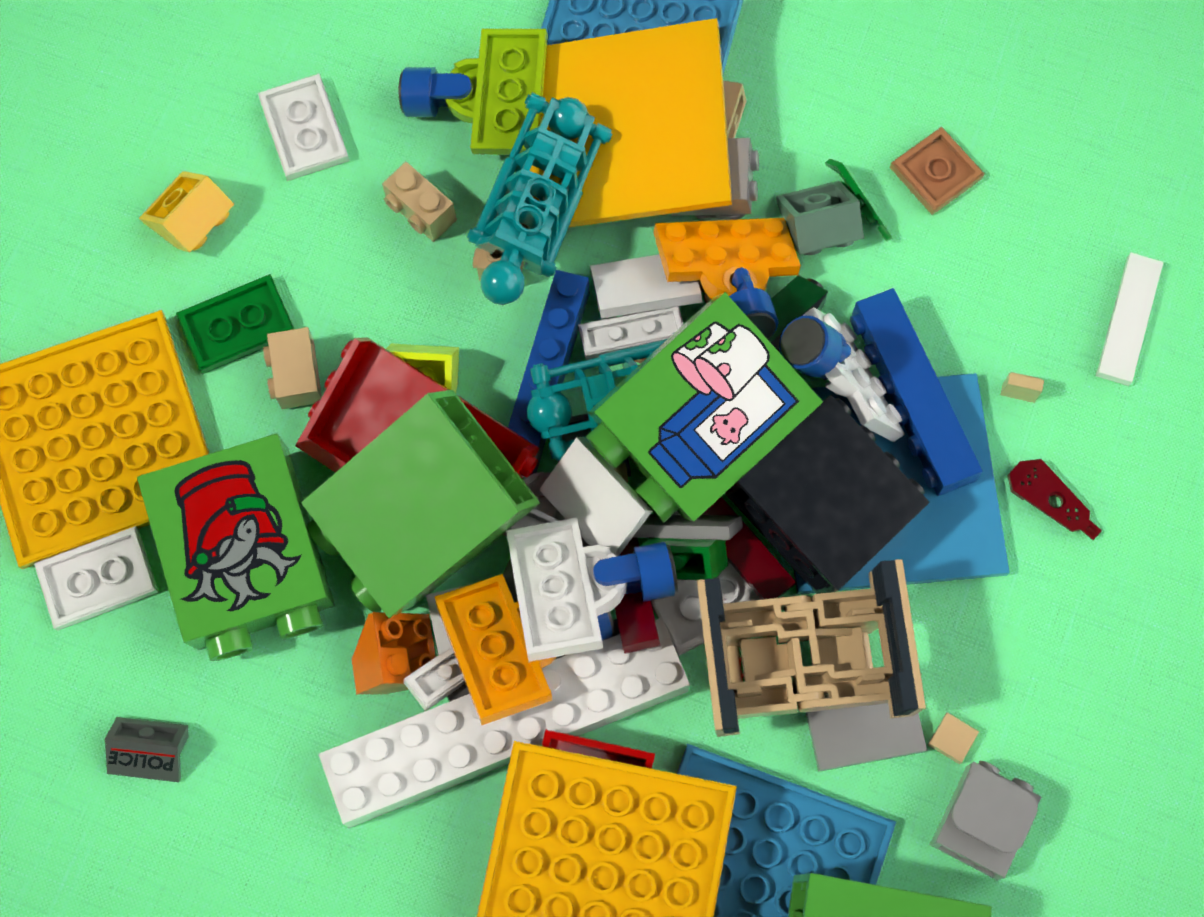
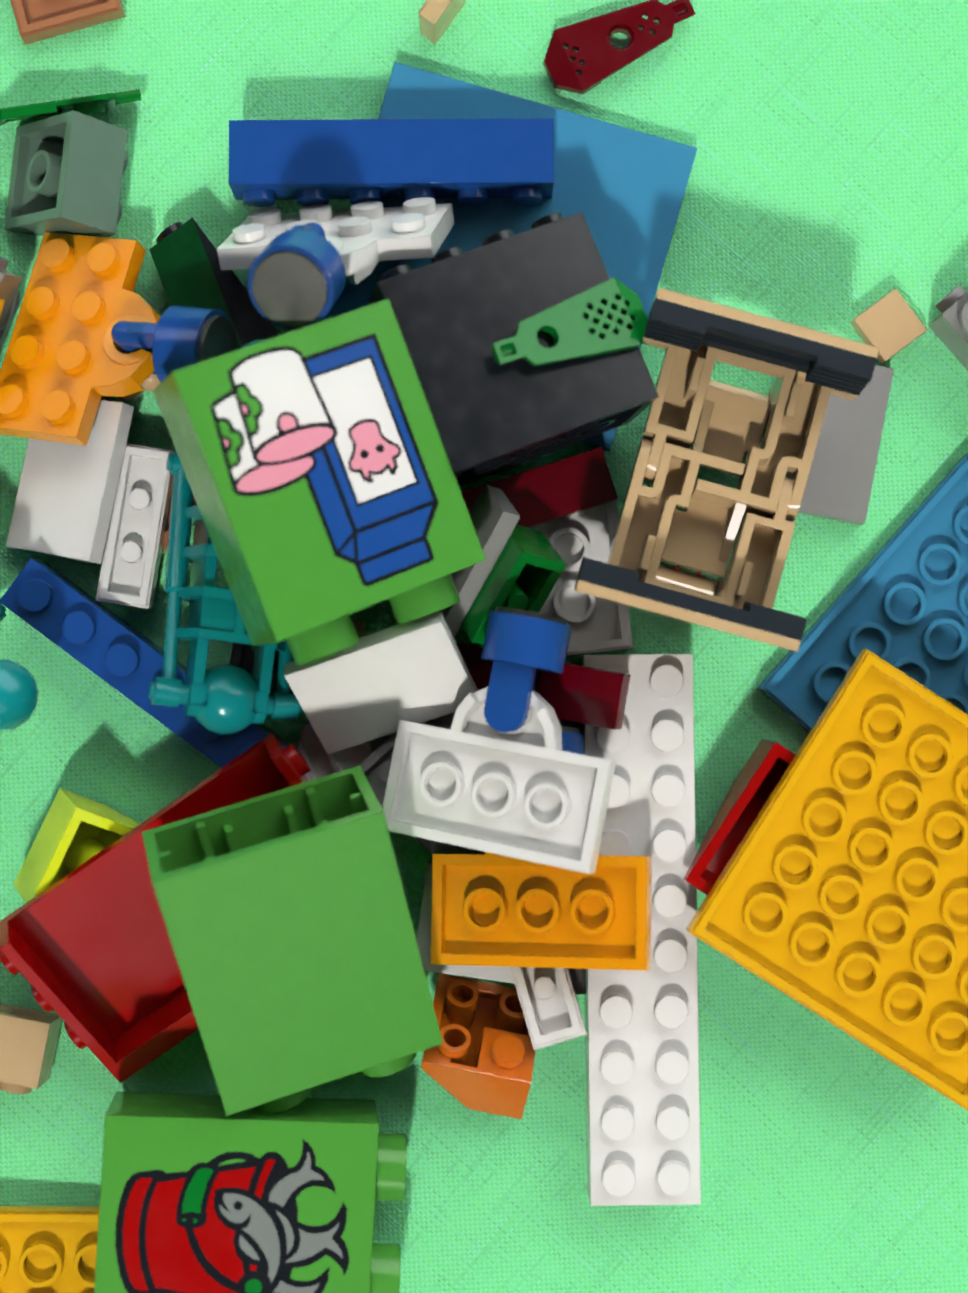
camera: 70 degrees left, 15 degrees up
(854, 519) = (571, 330): none -> green piece

